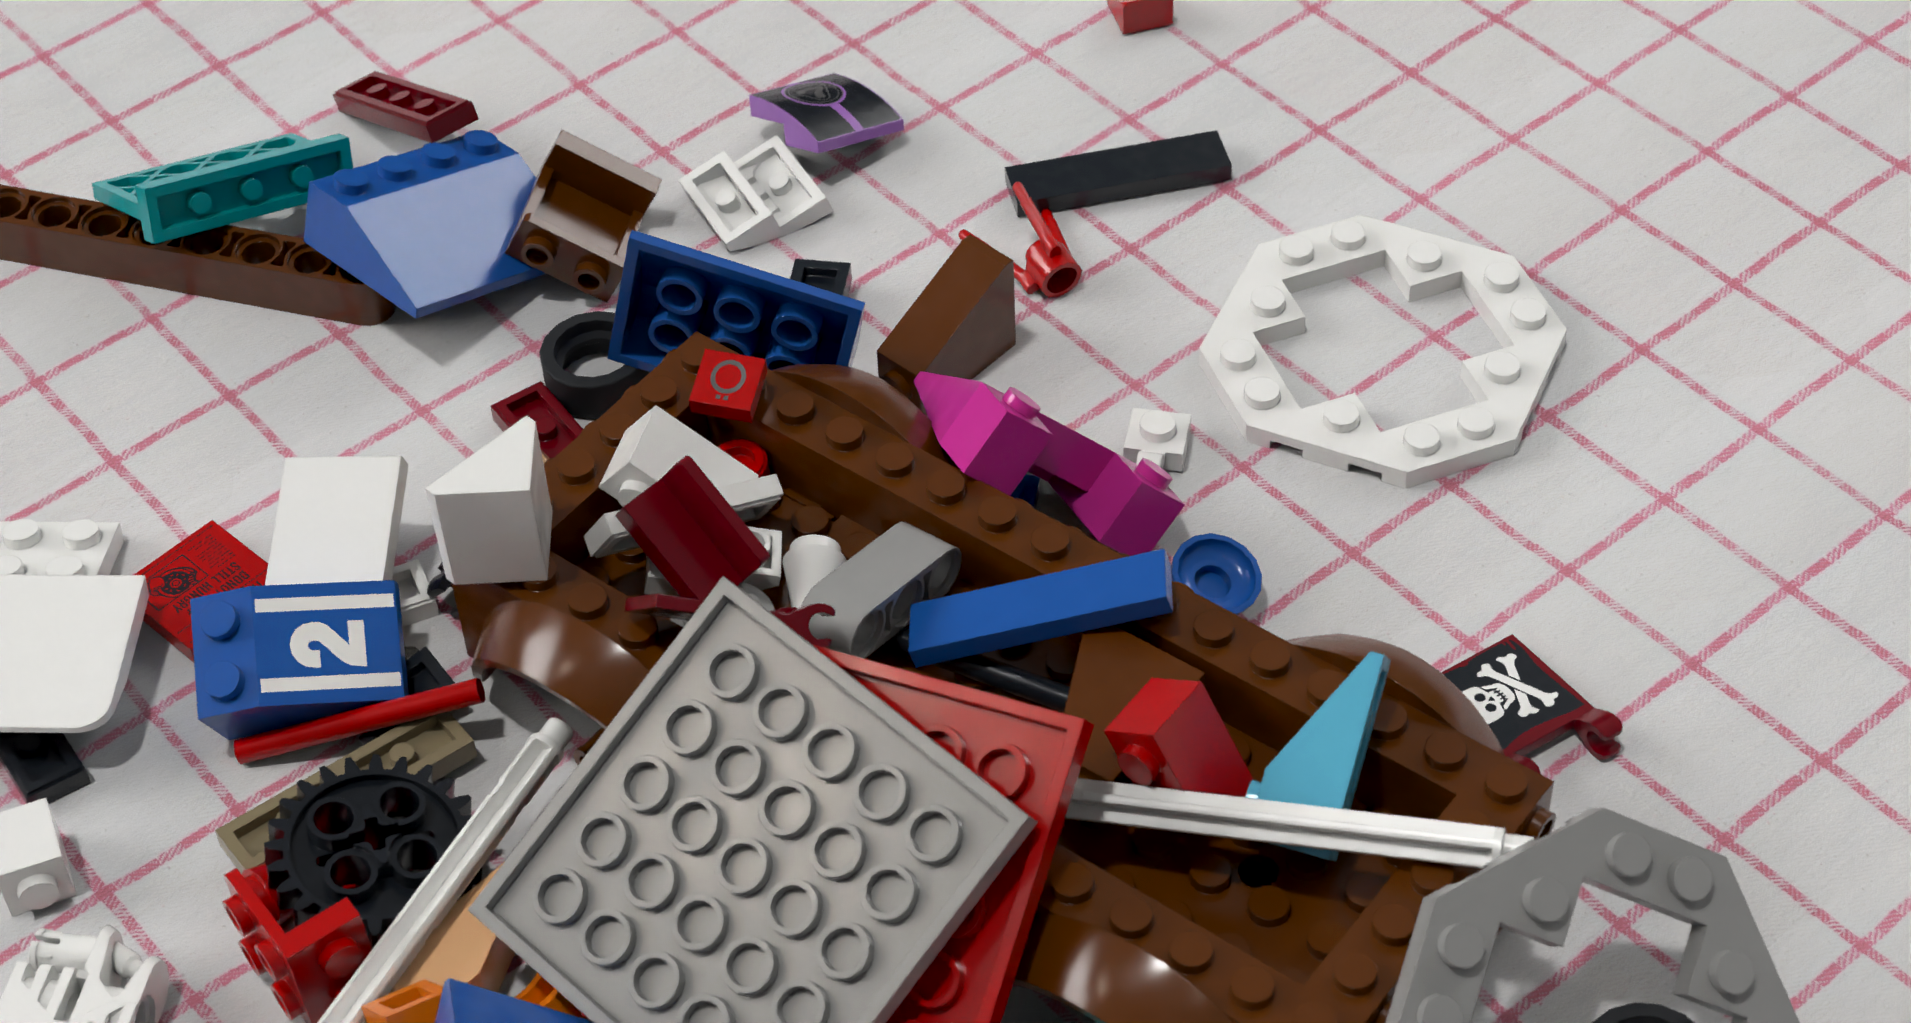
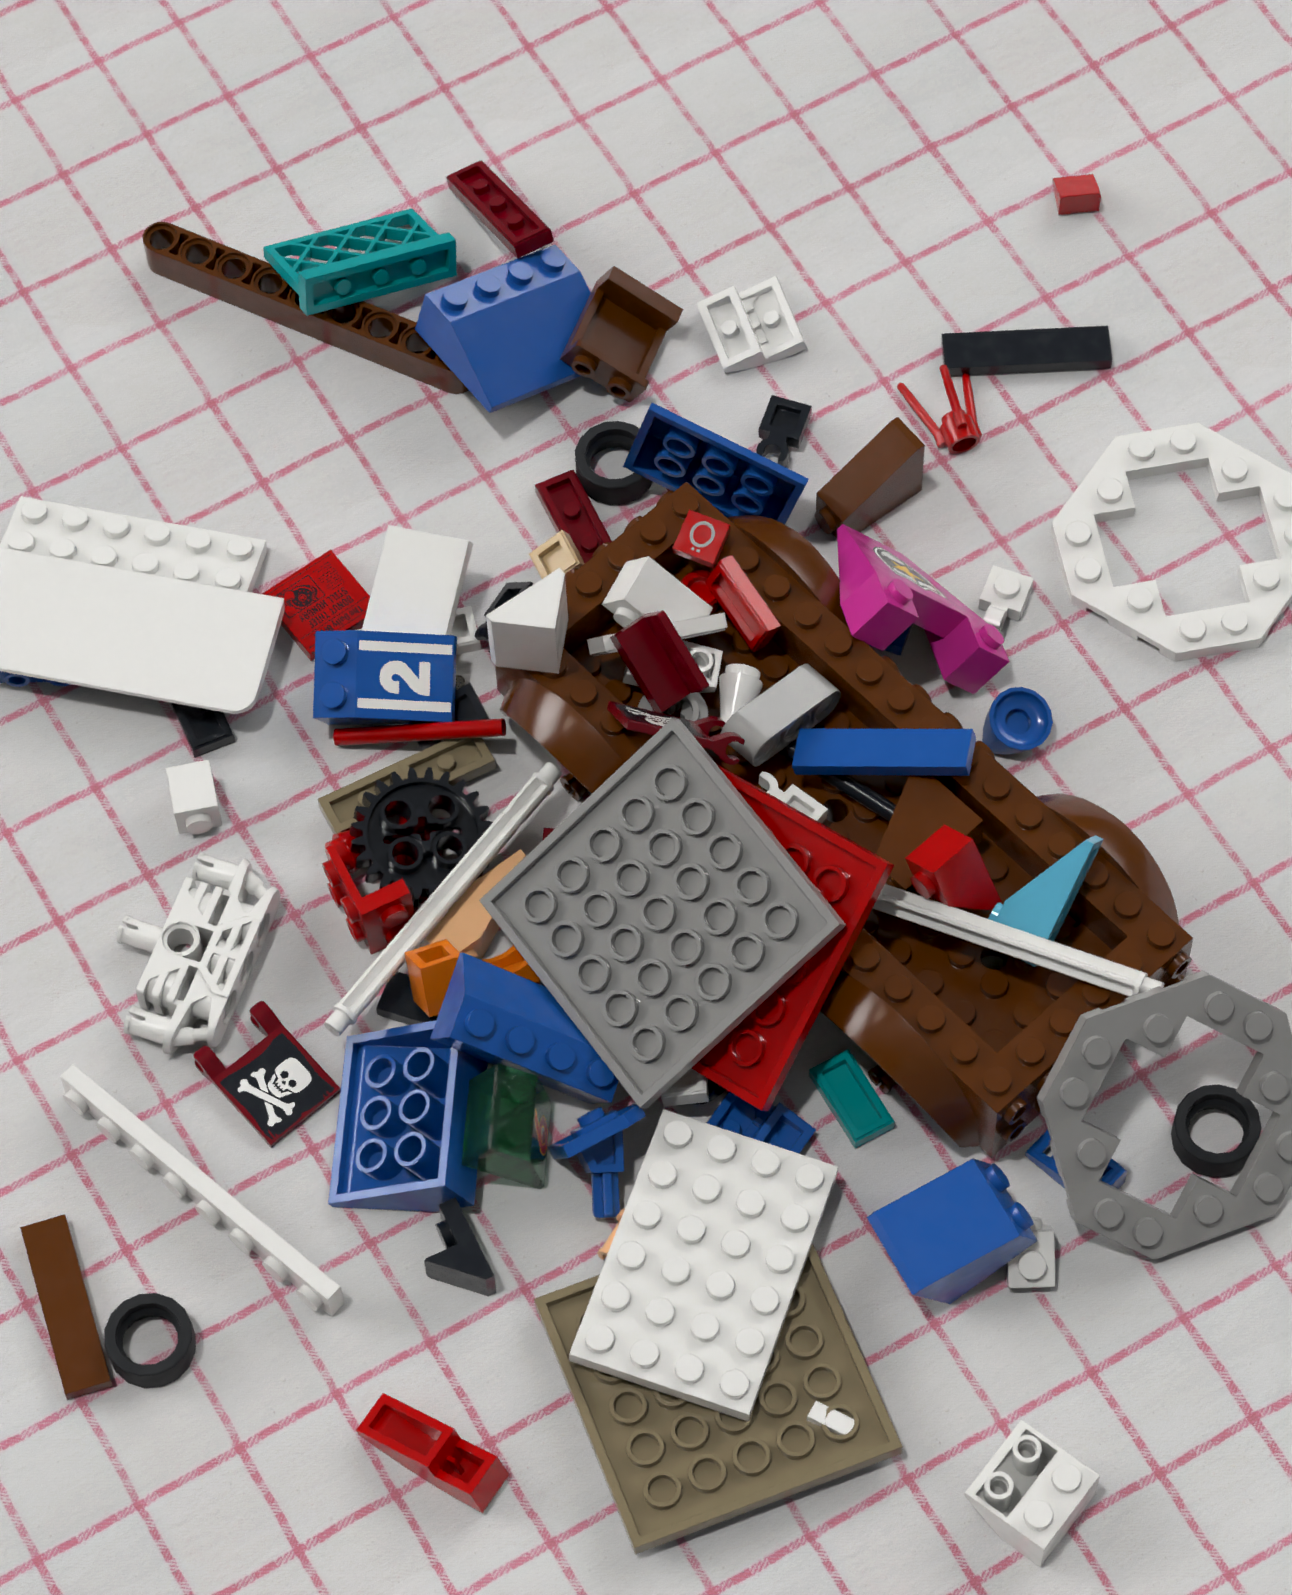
camera: 10 degrees right, 15 degrees up
(801, 462) = (742, 603): none -> red tile
(826, 112) = (816, 262): slope -> none
(1530, 702) = (1200, 849): flag -> none

